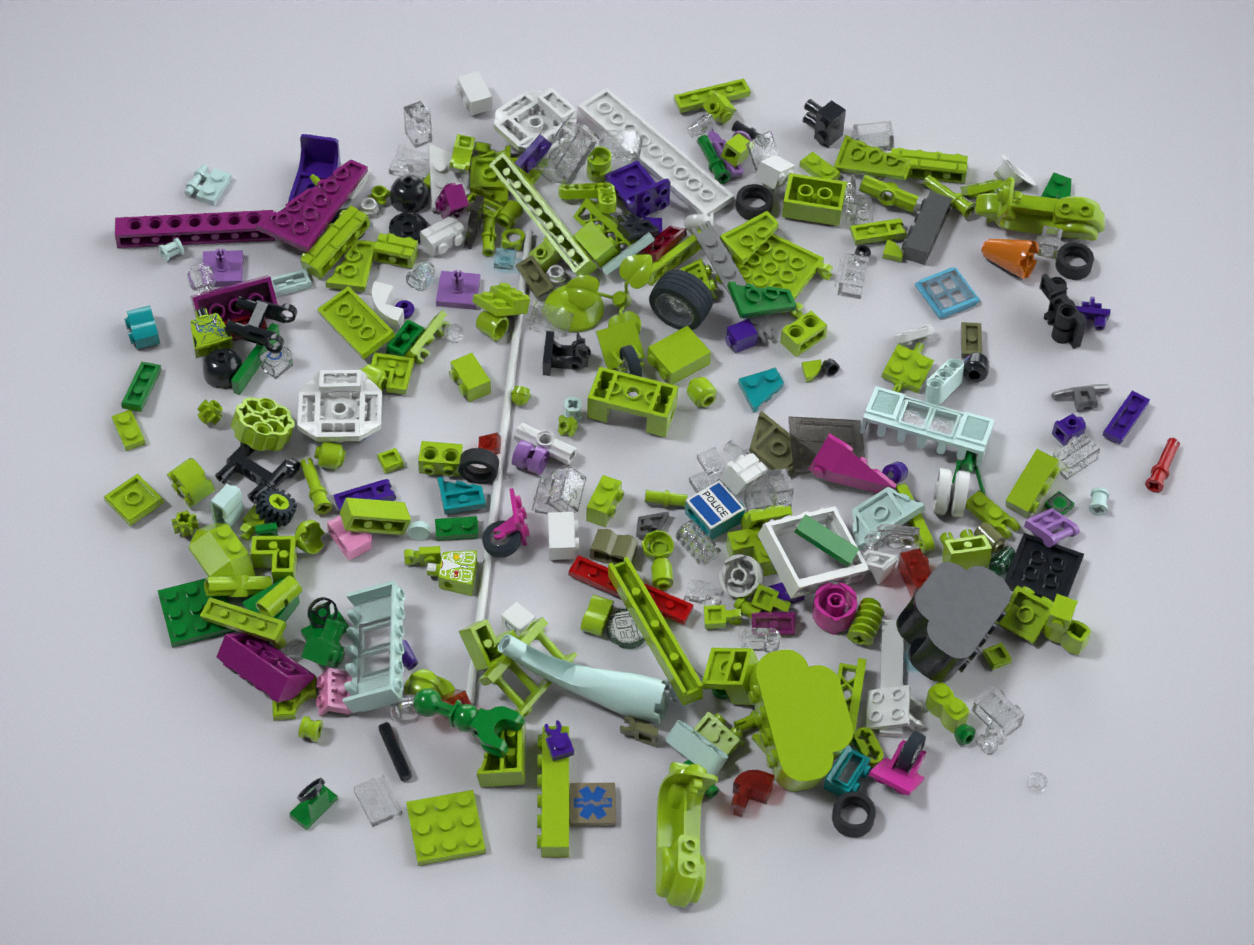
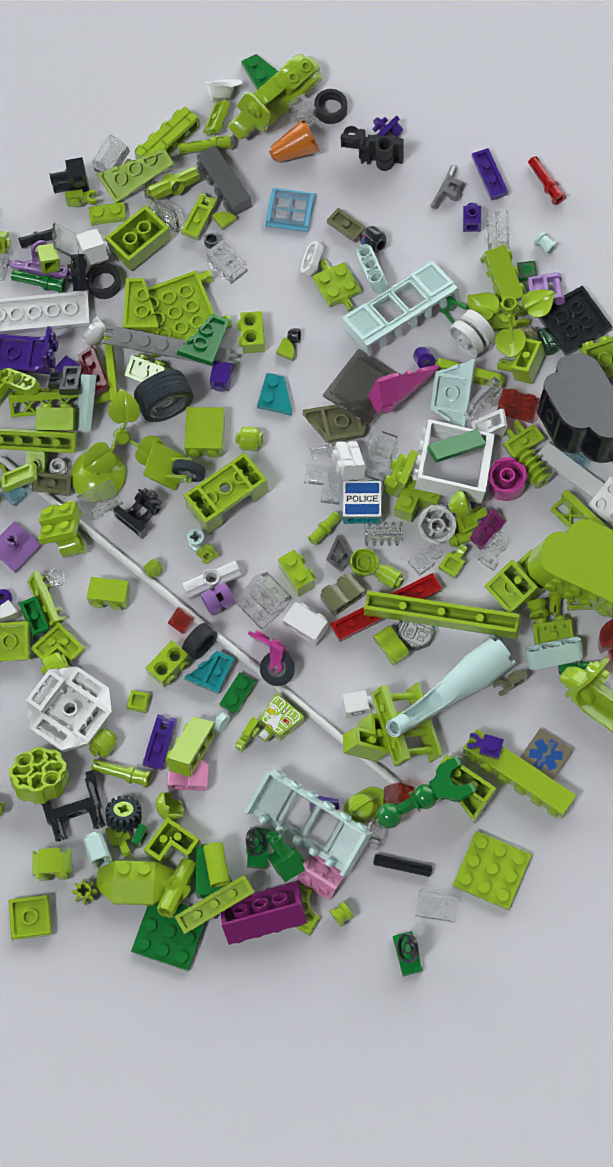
camera: 45 degrees left, 15 degrees up
(519, 248) = (19, 477): none -> lime tile
(730, 709) = (537, 608): none -> lime wheel
(736, 183) = (77, 272): none -> black hinge
(772, 576) = (460, 504): none -> lime cone
(812, 138) = (78, 197): none -> lime plate
(891, 602) = (527, 437): none -> lime hinge
(992, 489) = (511, 341): none -> lime plant

